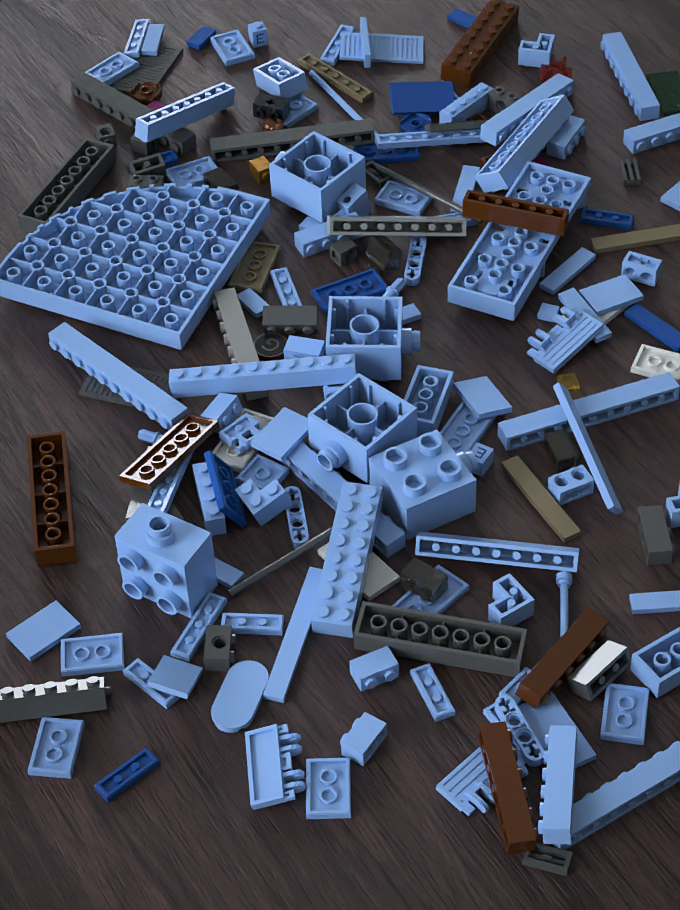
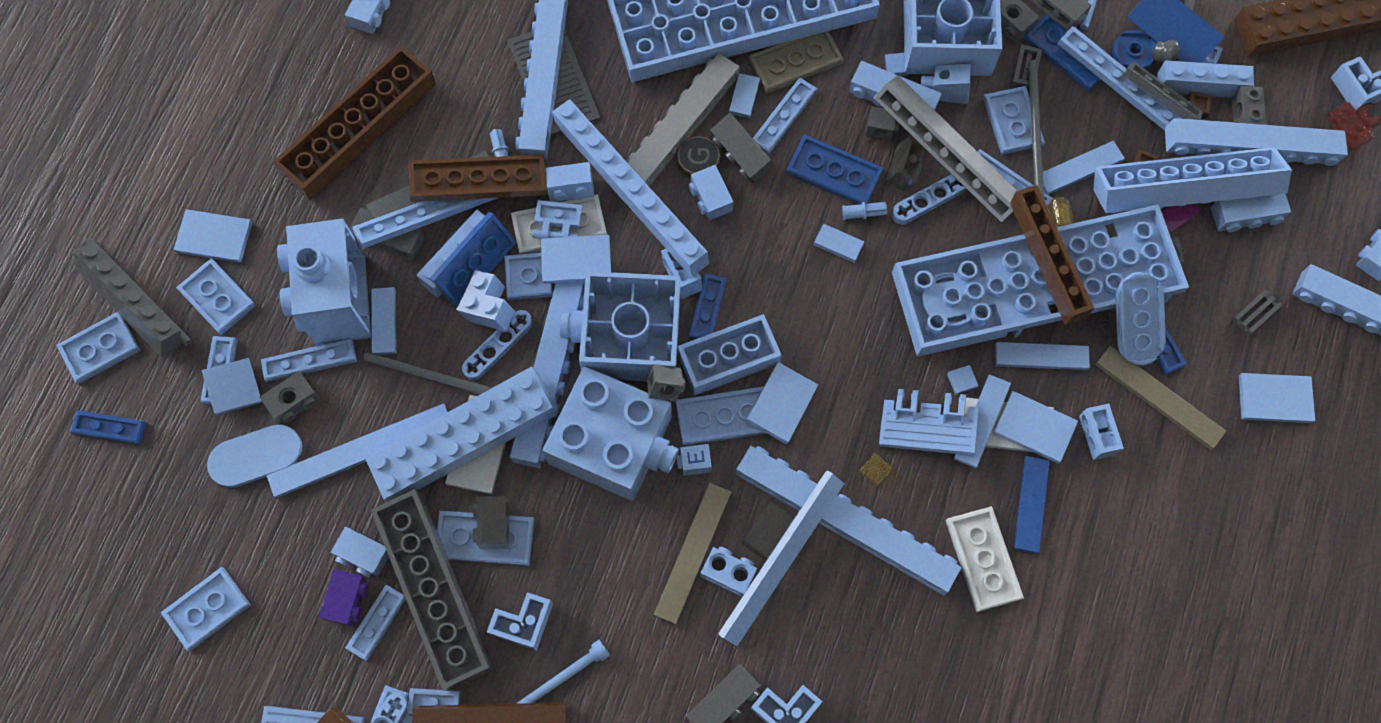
camera: 50 degrees right, 25 degrees up
(254, 623) = (344, 403): light blue tile -> none
(269, 756) = (190, 541): light blue hinge -> none
(363, 738) = (274, 602): light blue brick -> none
(373, 332) = (757, 240): light blue brick -> none
(400, 694) = (343, 598): none -> dark purple brick
(422, 421) = (665, 383): none -> dark grey brick
(433, 109) = (1166, 51): none -> dark grey arm
(497, 551) = (582, 565): light blue brick -> none
(589, 209) = (1140, 318): none -> light blue tile

